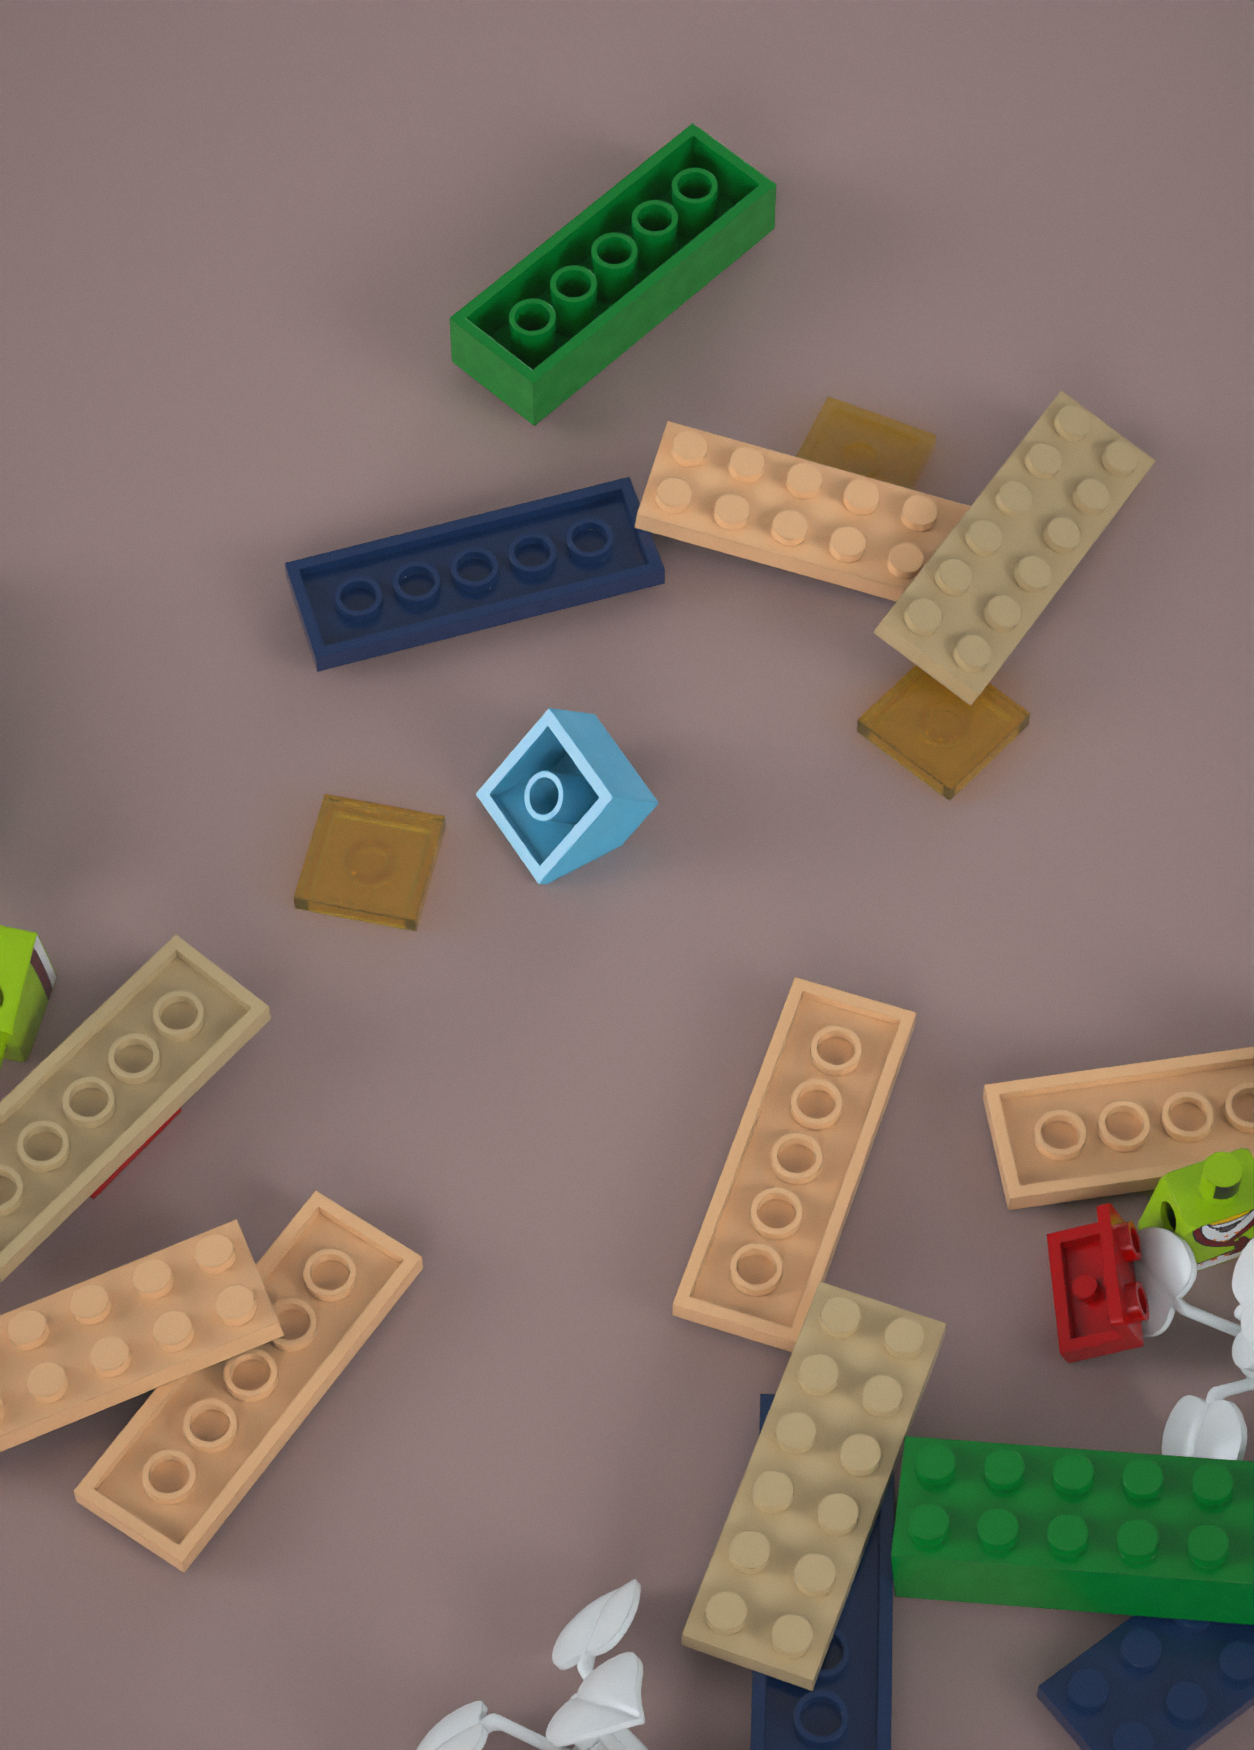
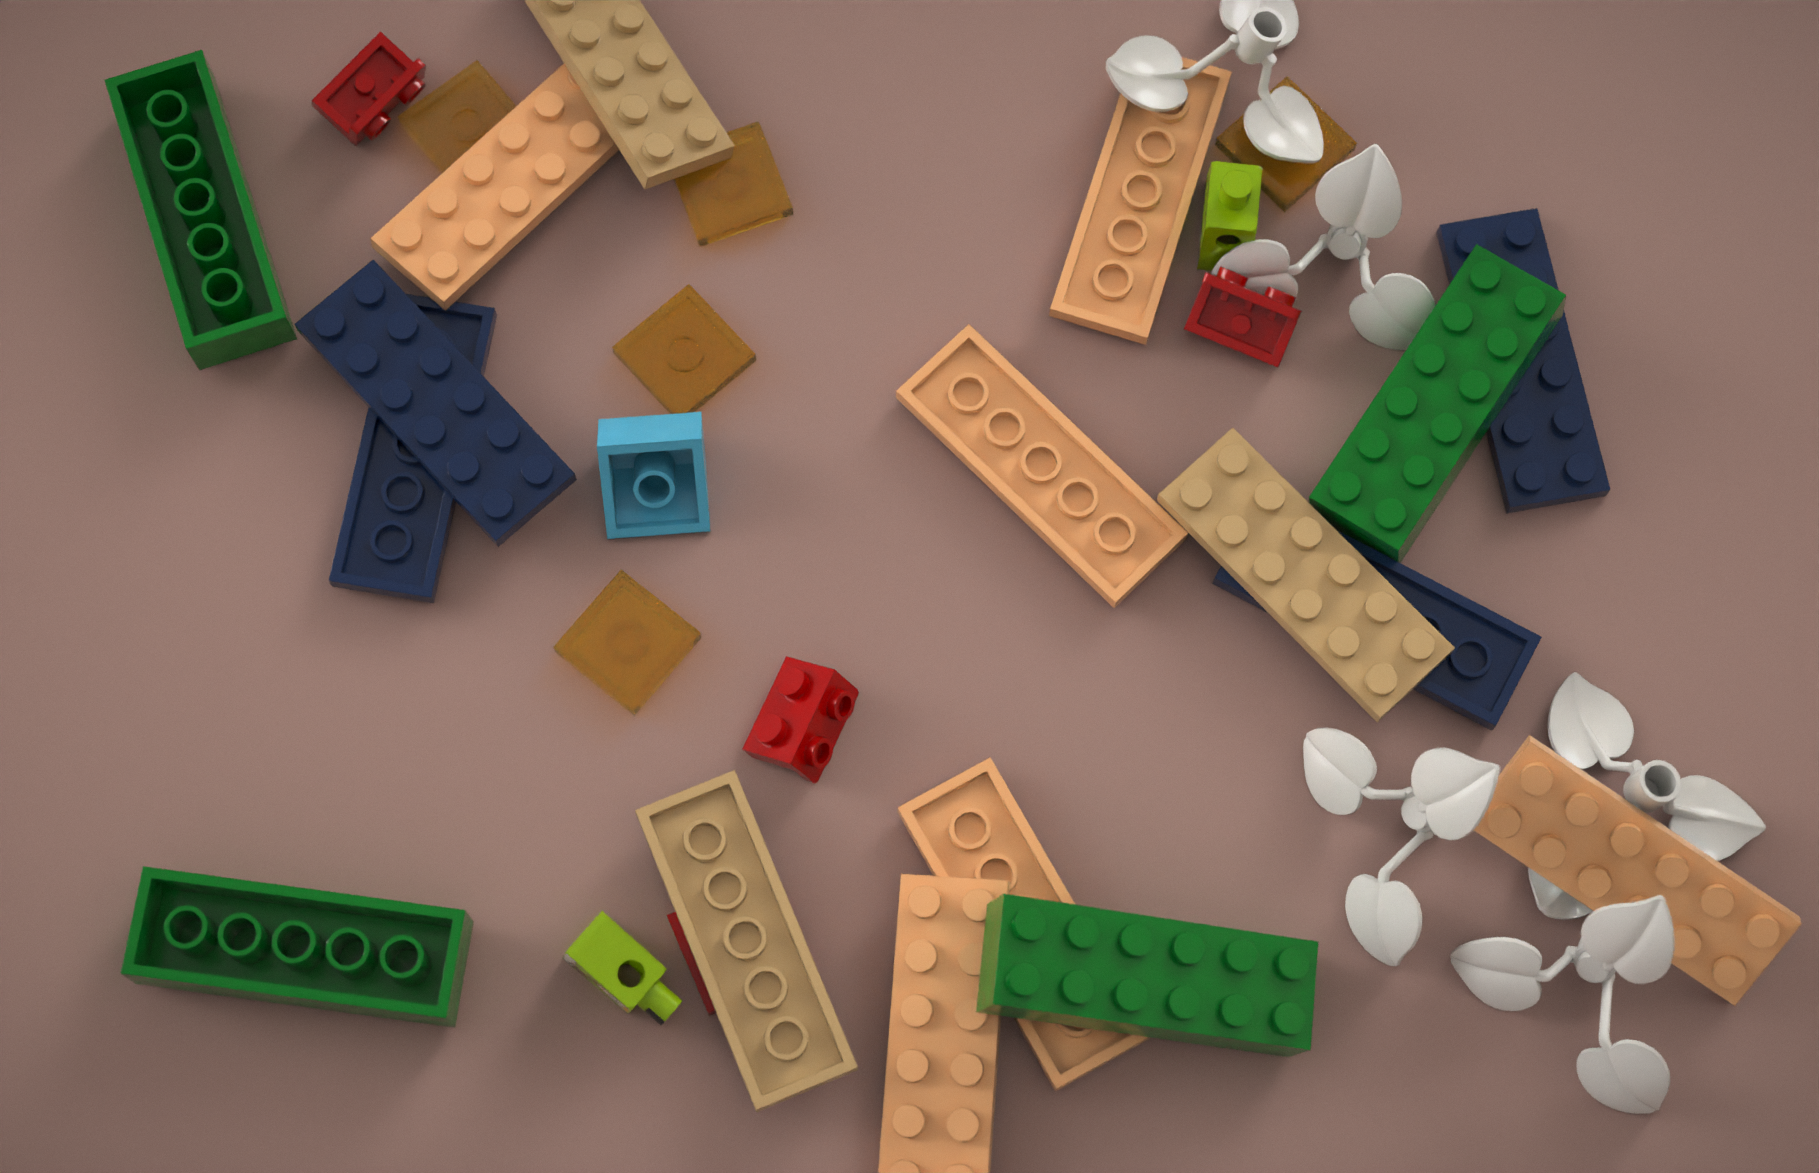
camera: 65 degrees left, 15 degrees up
(238, 1513) = (1147, 976): none -> green brick
(370, 1062) = (802, 718): none -> red bracket
(525, 564) = (436, 402): none -> dark blue plate
(725, 769) = (684, 352): none -> clear yellow tile
(839, 357) = (369, 89): none -> red bracket

